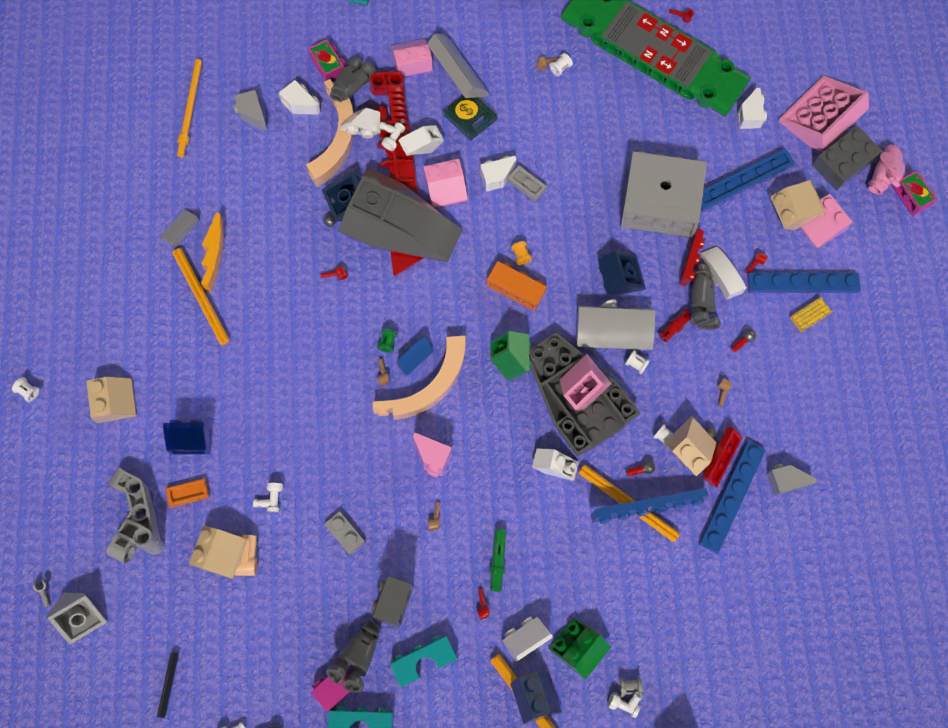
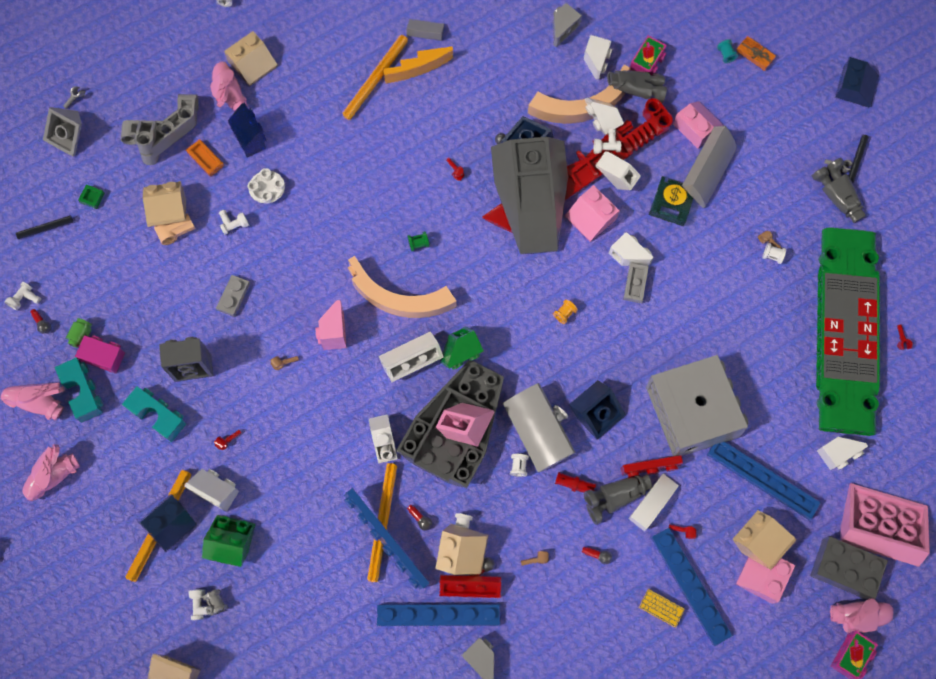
camera: 65 degrees right, 0 degrees up
(128, 435) = (226, 87): none -> bright pink animal
(162, 622) = (91, 196): none -> green tile
(253, 449) = (266, 186): none -> white dish
(301, 698) = (78, 331): none -> bright green brick
(358, 653) = (131, 355): dark grey piece -> none
(383, 378) = (383, 257): medium nougat hand -> none
(414, 355) = (417, 270): blue slope -> none
(494, 401) = (411, 356): none -> white brick
(497, 569) = (263, 436): green pin -> none
(516, 285) = (531, 322): orange brick -> none

